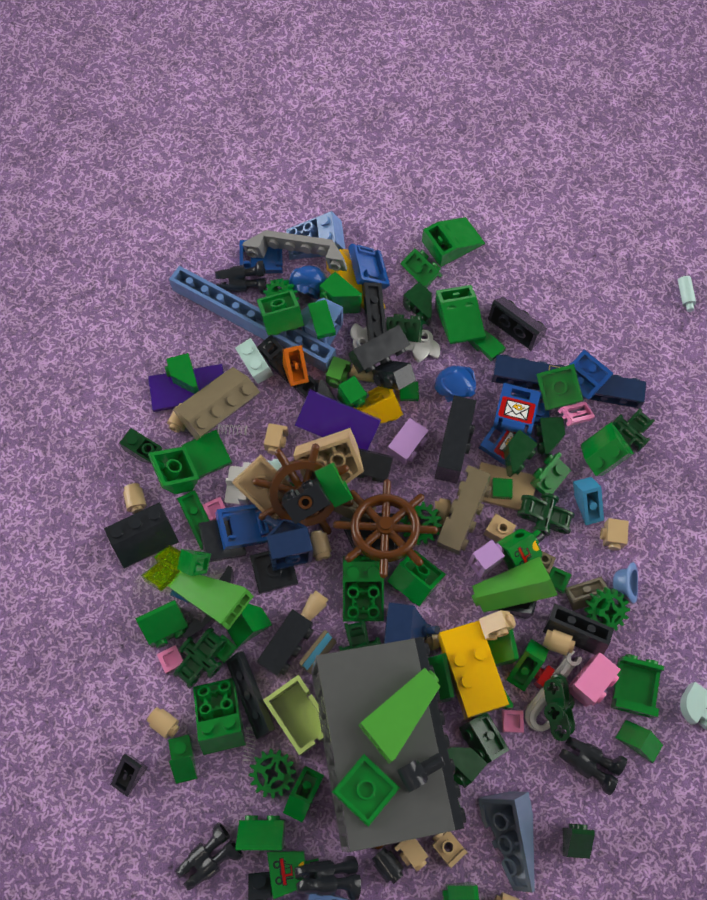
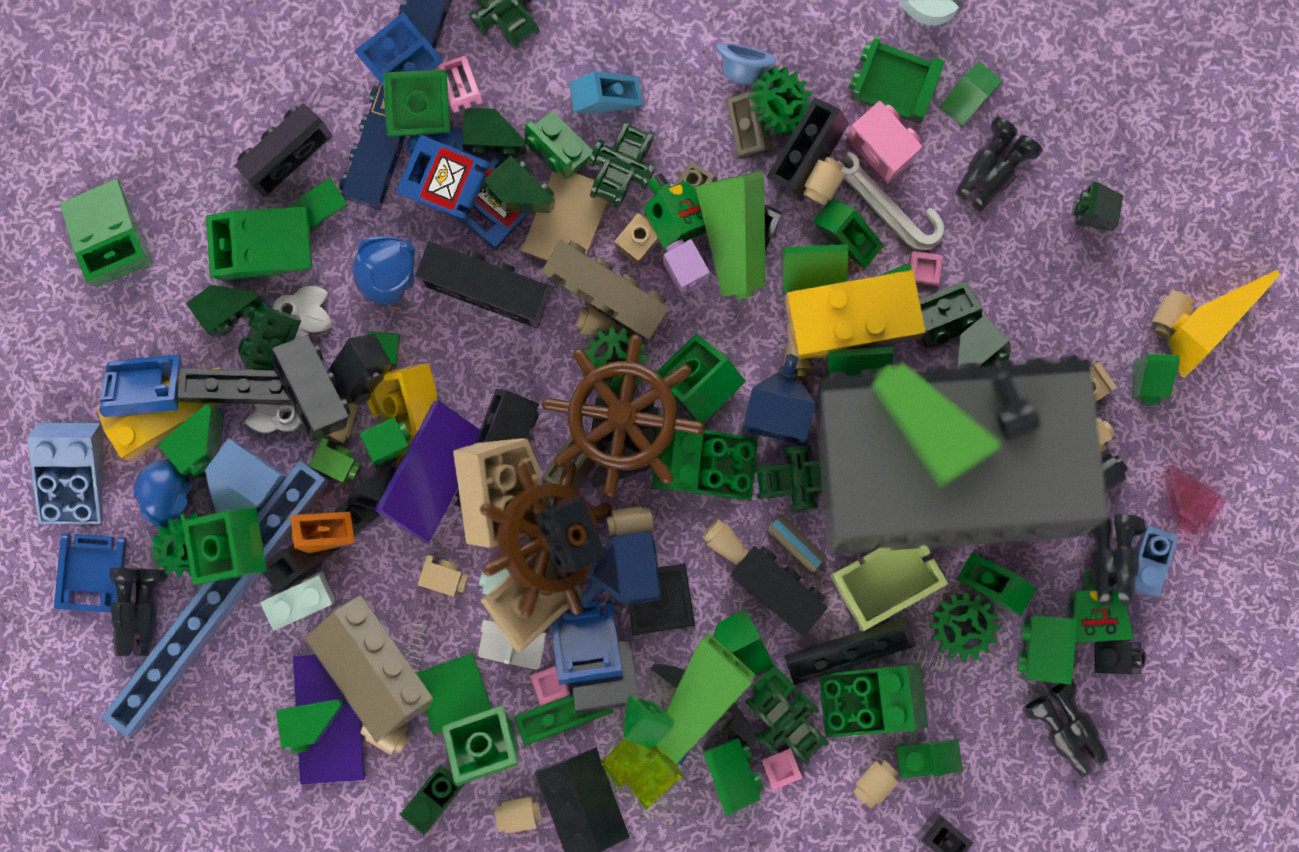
camera: 80 degrees left, 15 degrees up
(259, 244) = (73, 574): light grey slope -> none
(321, 319) = (249, 476): green tile -> none
(333, 485) = (549, 488): green slope -> none
(365, 790) = (1030, 487): green tile -> none
(408, 441) = (473, 361): lavender brick -> none
(420, 268) = (152, 295): green bracket -> none
(497, 624) = (797, 268): tan brick -> none
(502, 488) = (571, 224): green tile -> none
(512, 825) = (1070, 293): sand blue wedge -> none
(543, 675) = (869, 212): red plate -> none
(559, 579) = (724, 163): green tile -> none
(561, 705) = (925, 198): dark green axle -> none
(605, 450) = (529, 51): green slope -> none
(615, 534) = (665, 64): tan brick -> none

